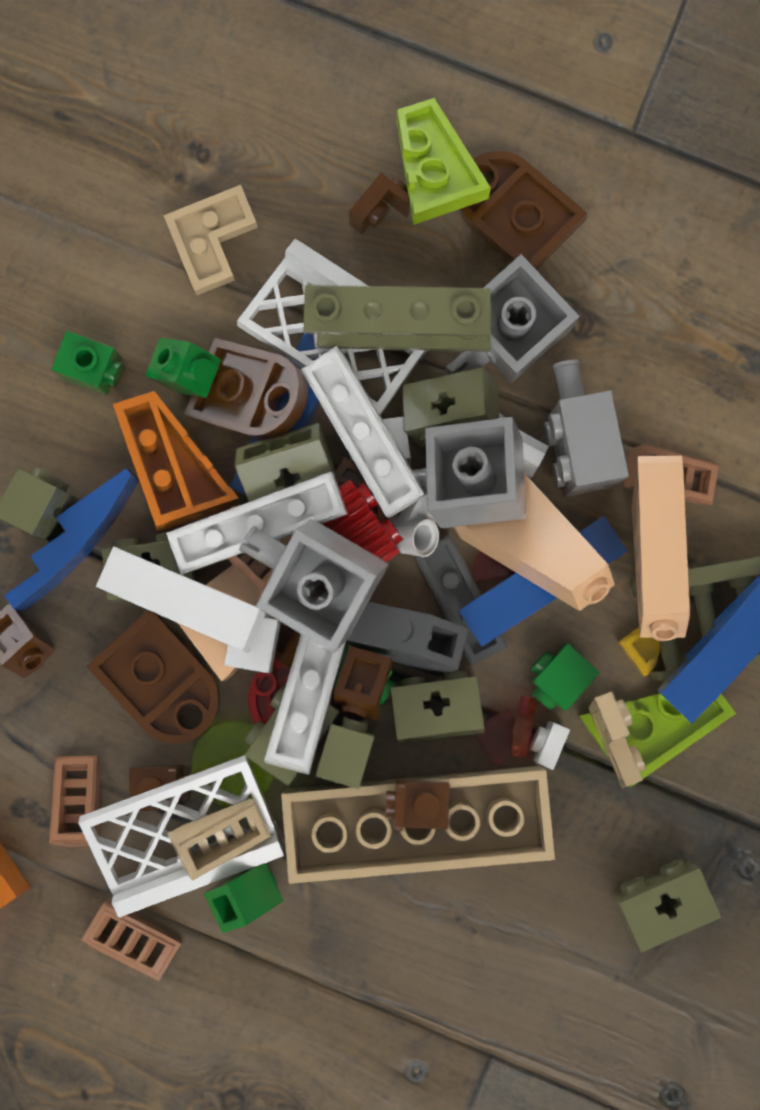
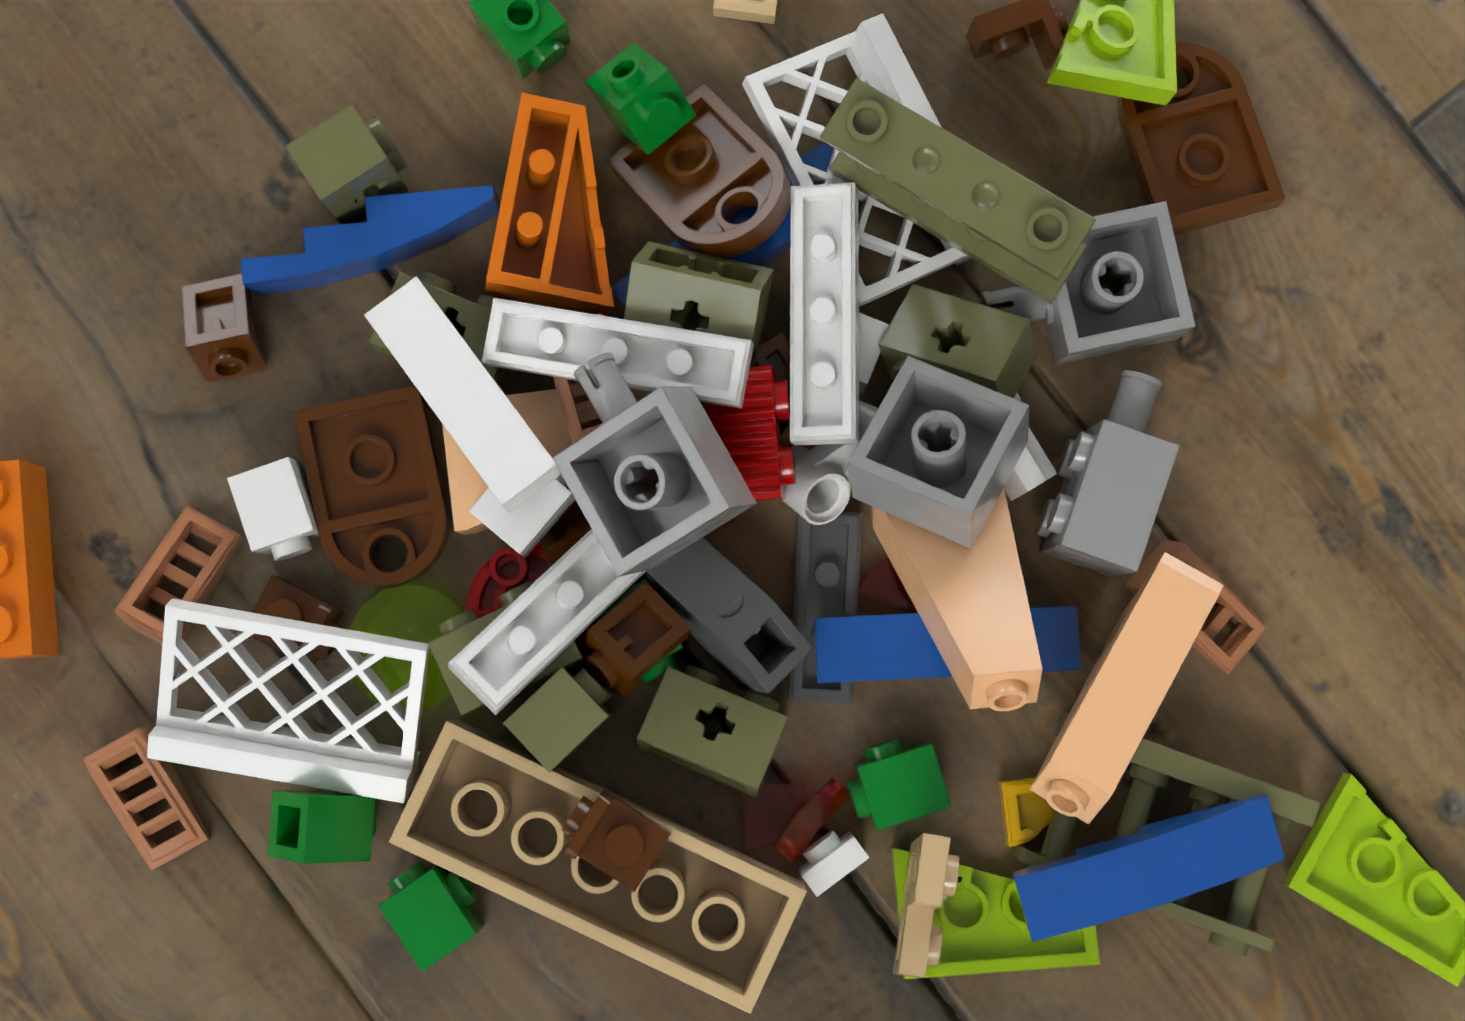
camera: 25 degrees right, 0 degrees up
(109, 728) = (276, 508): none -> white brick
(209, 857) = (313, 705): tan slope -> none
(336, 909) = (431, 912): none -> green brick

